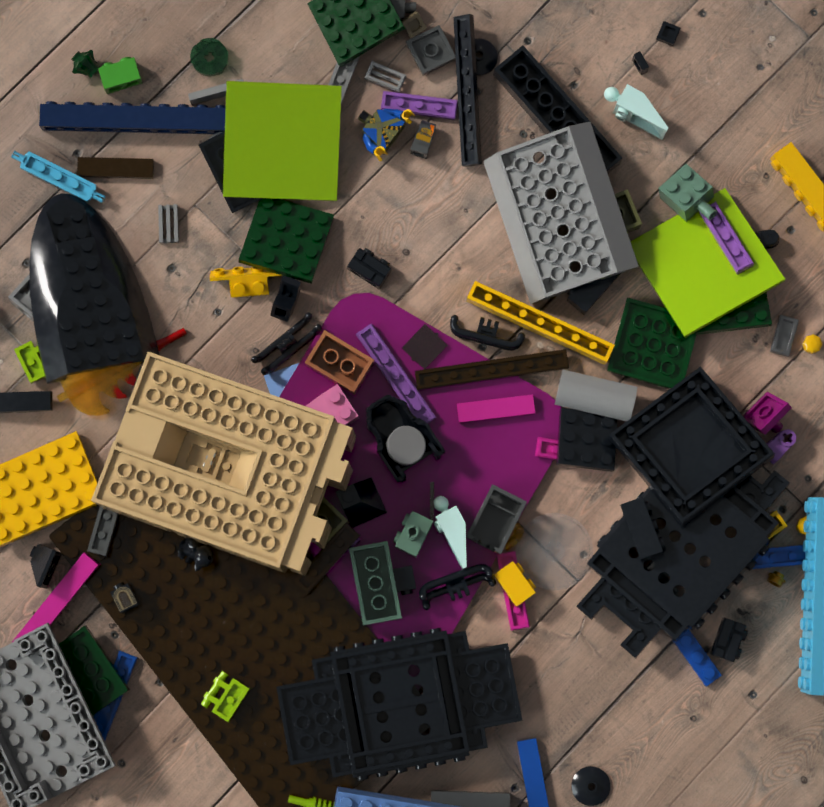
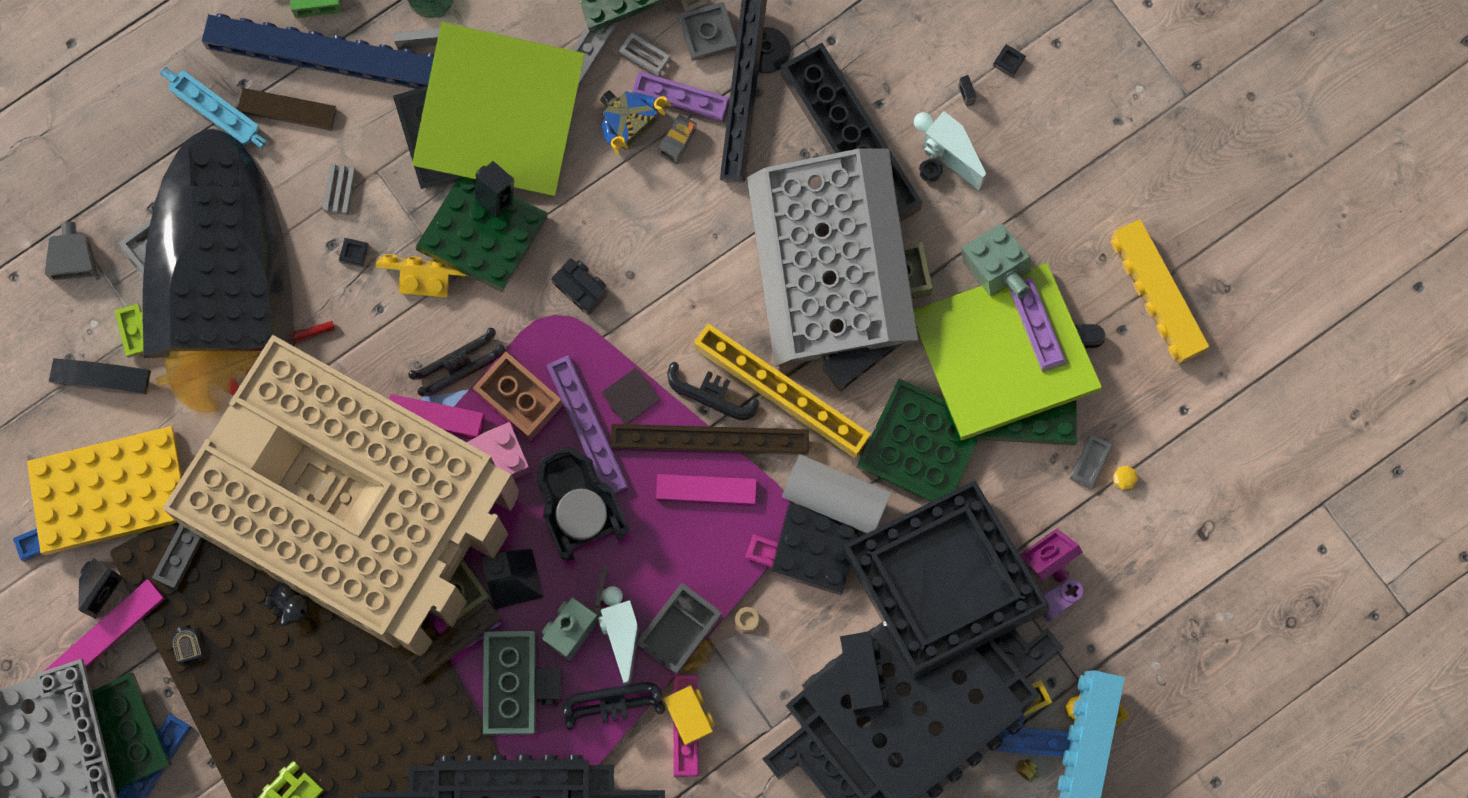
camera: 10 degrees right, 5 degrees down
(189, 271) = (353, 252): none -> black tile
(283, 388) = (446, 417): none -> dark pink tile
(286, 298) = (468, 306): black brick -> none
(291, 204) = (494, 188): none -> black brick
(544, 502) = (747, 619): none -> tan tile
(622, 135) = (930, 164): none -> black plate

